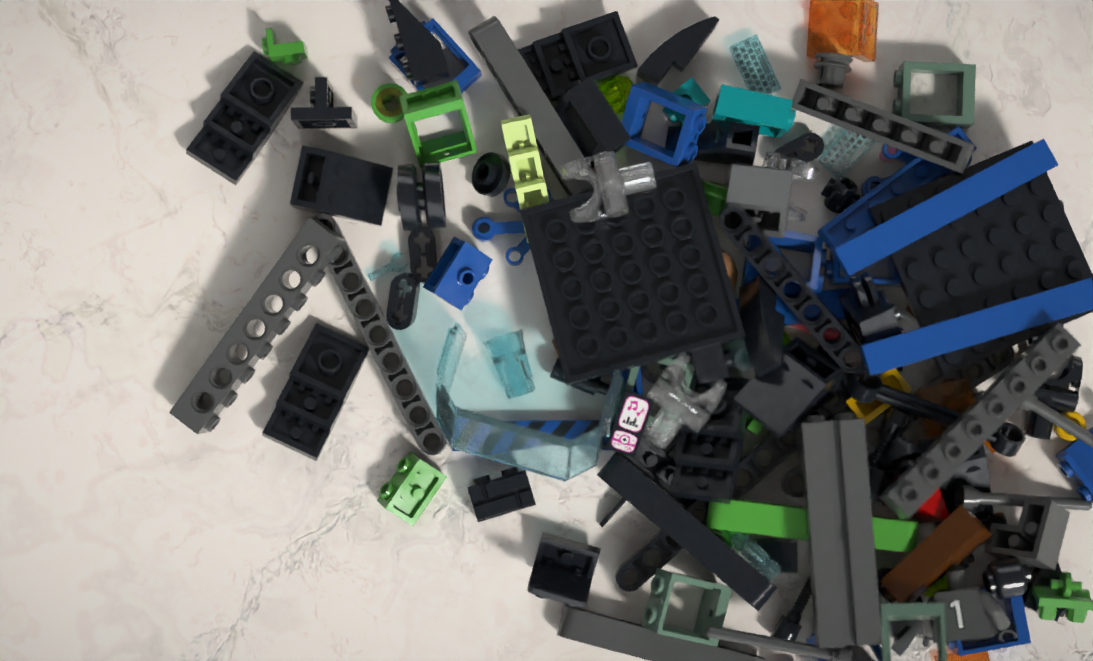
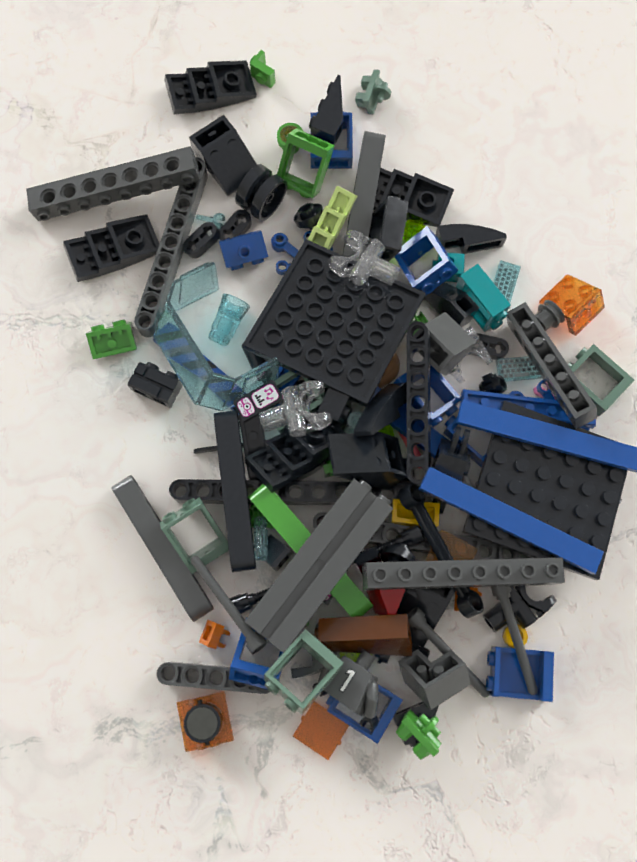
camera: 40 degrees right, 10 degrees down
(323, 113) = (251, 109): black bracket -> none
(563, 570) = (148, 453): black bracket -> none
(1006, 578) = (396, 687): black head -> none

